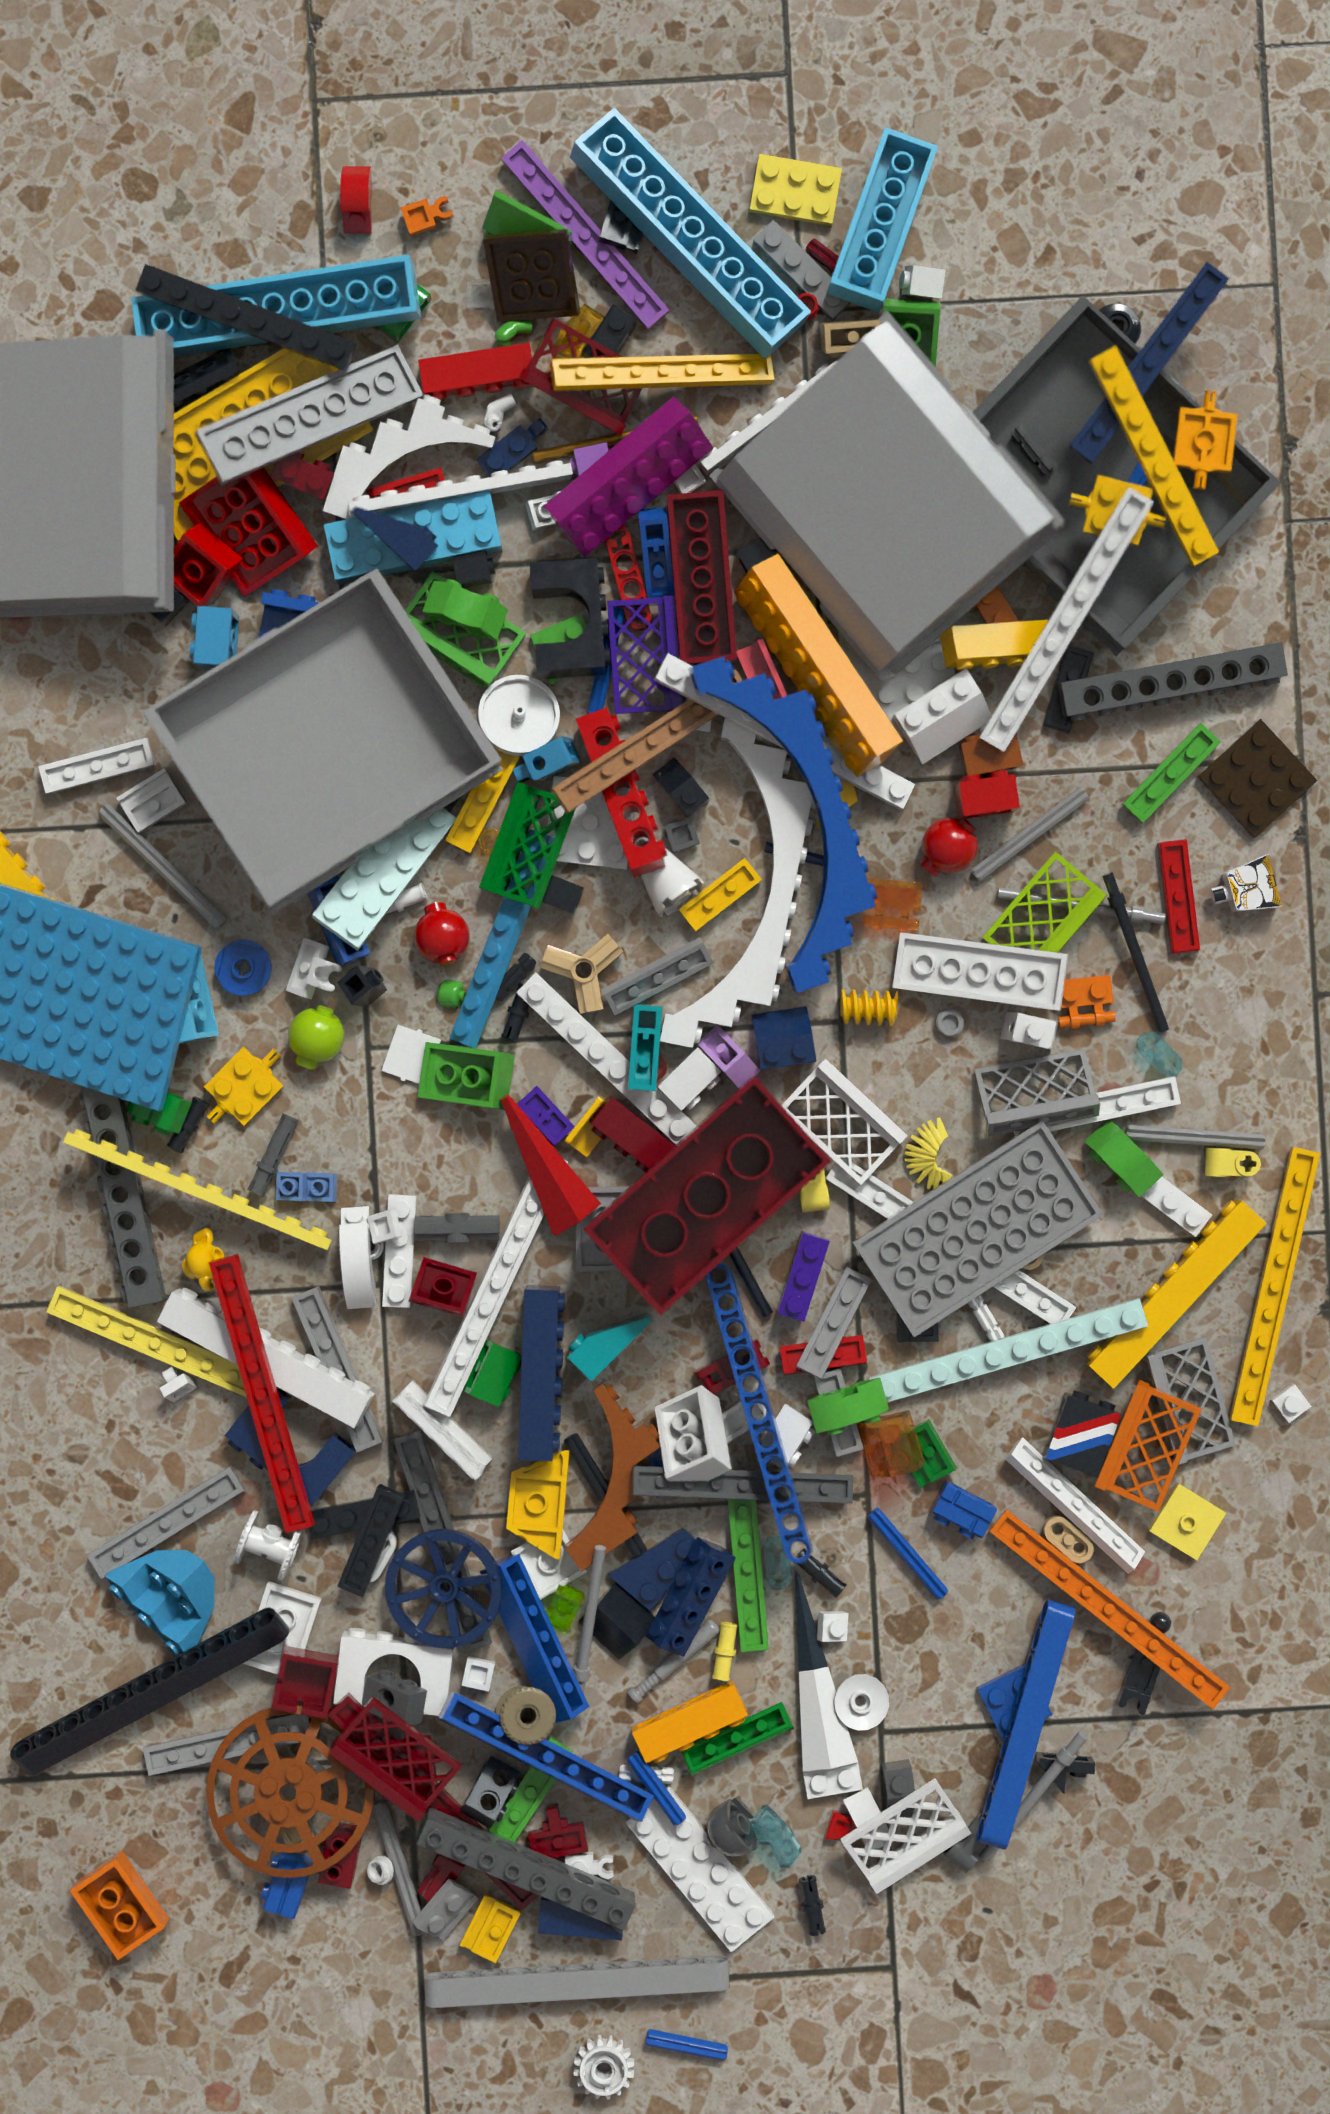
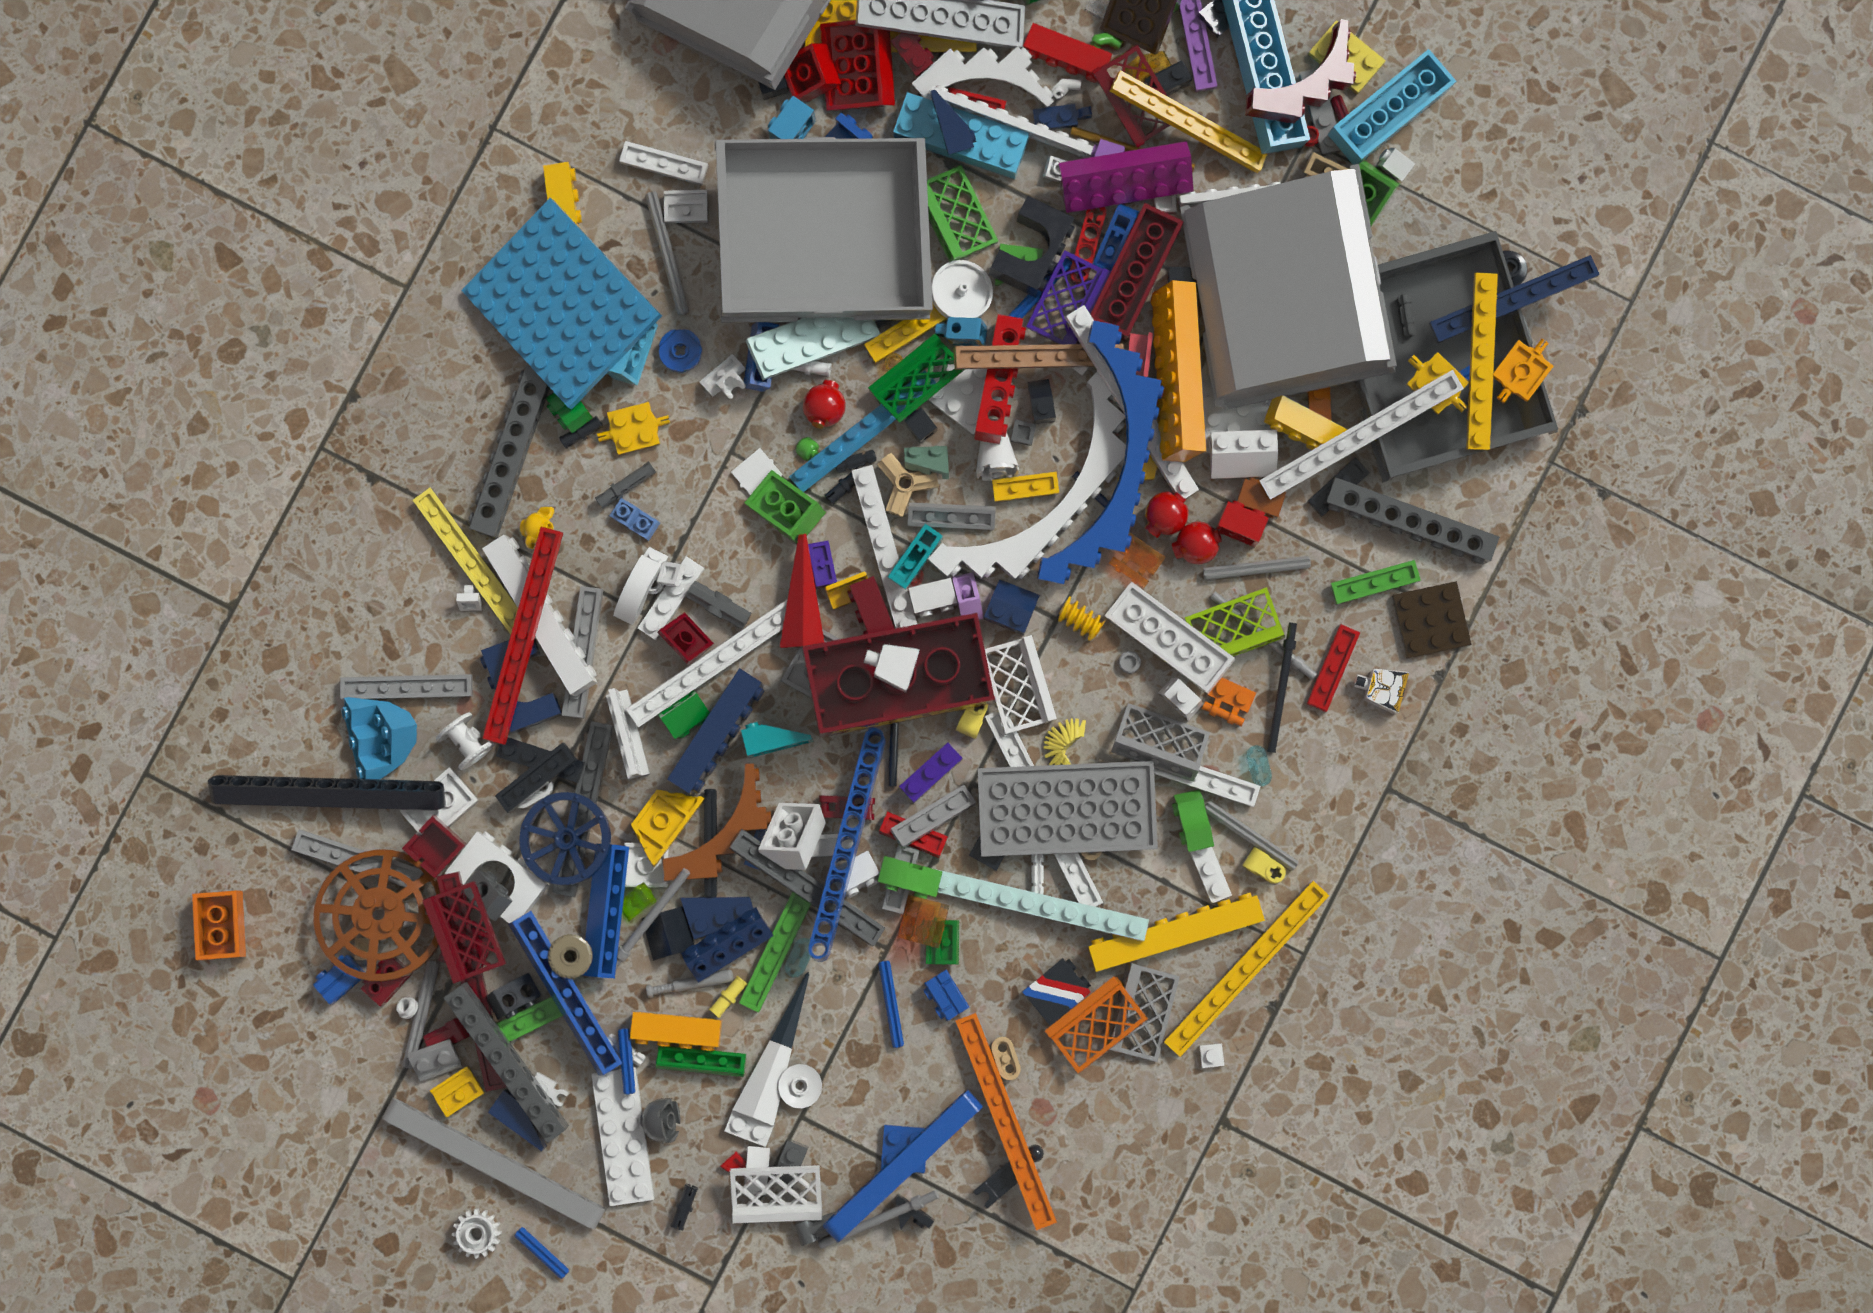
camera: 30 degrees right, 5 degrees down
(187, 1184) = (557, 469): light yellow plate -> none
(315, 1036) = (700, 422): lime brick -> none
(362, 985) = (752, 407): black brick -> none
(473, 569) = (988, 179): black brick -> none
(476, 613) = (973, 208): bright green brick -> none
(478, 1673) = (553, 913): white plate -> none
(558, 1836) = (541, 1056): dark red hinge -> none
(594, 929) = (927, 460): none -> sand green wing
(698, 1191) = (893, 665): none -> white torso
(774, 1832) = (688, 1138): clear light blue slope -> none
(791, 218) = (1289, 102): none -> arch
(821, 1574) = (824, 982): black pin -> none
(832, 1626) = (811, 1023): white plate -> none
(895, 834) = (1166, 514): none -> red brick
(1075, 1505) = (1024, 1038): white plate -> none
(1187, 1521) = (1094, 1095): light yellow plate -> none

